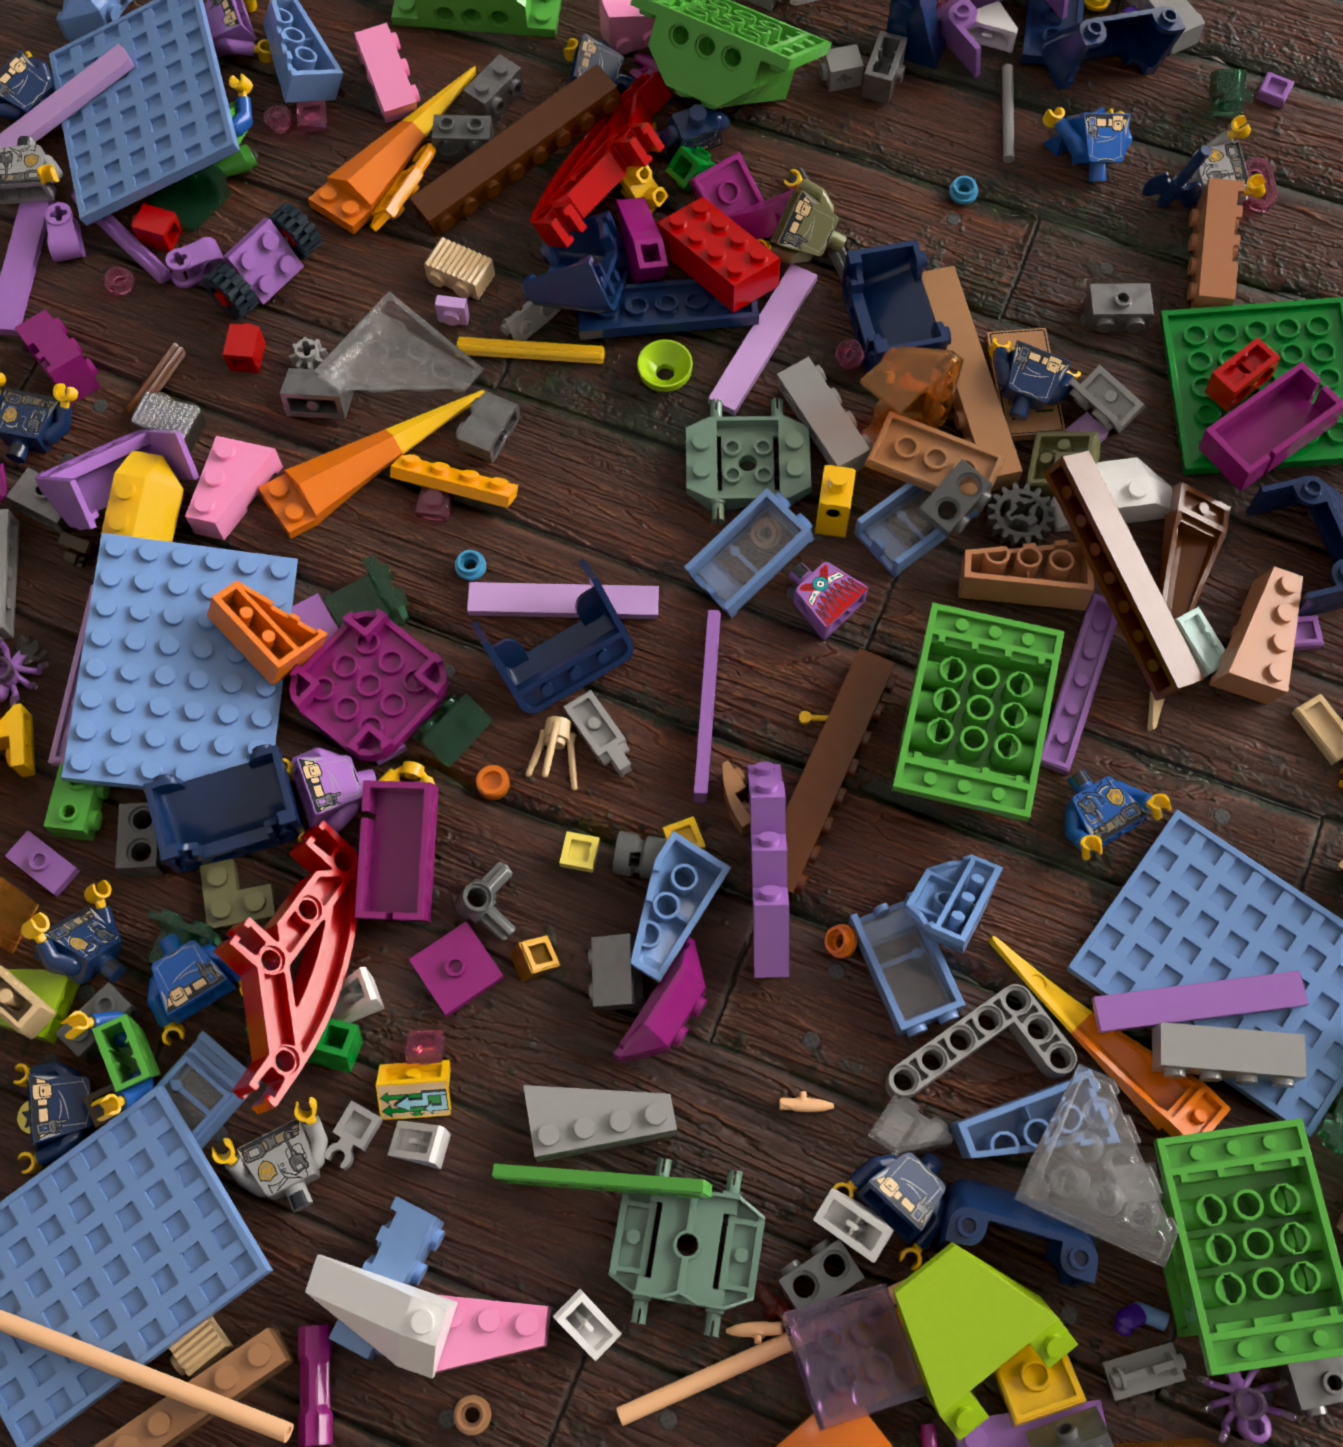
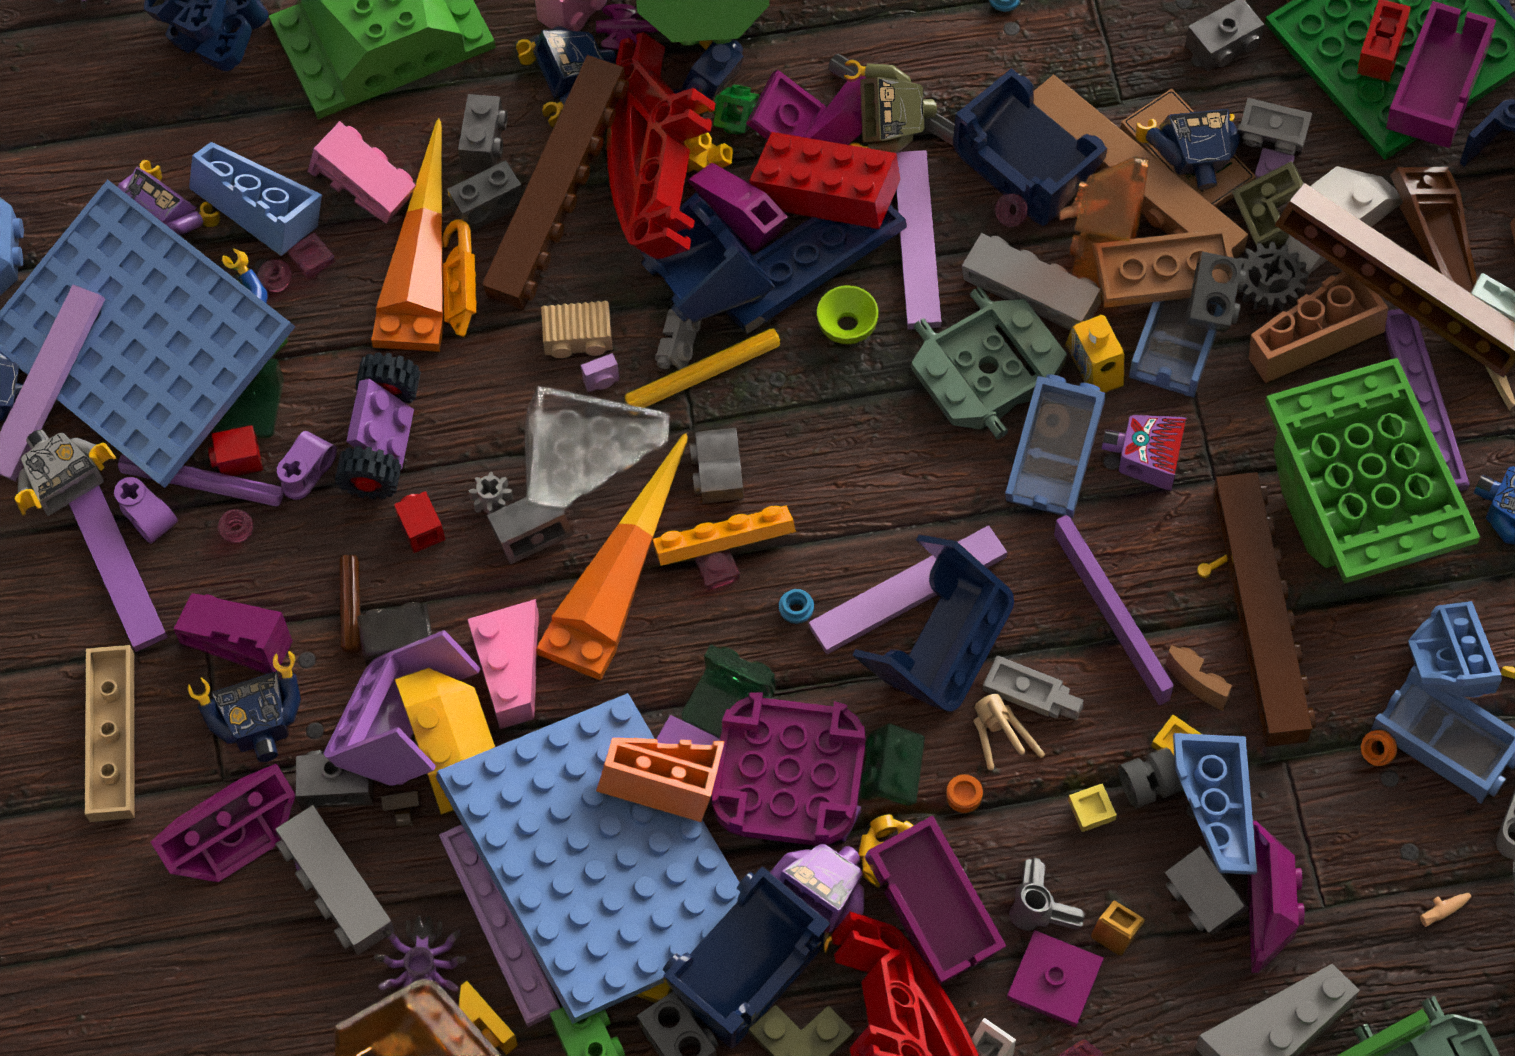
camera: 30 degrees left, 5 degrees down
(769, 870) = (1277, 707): medium lavender arch -> none

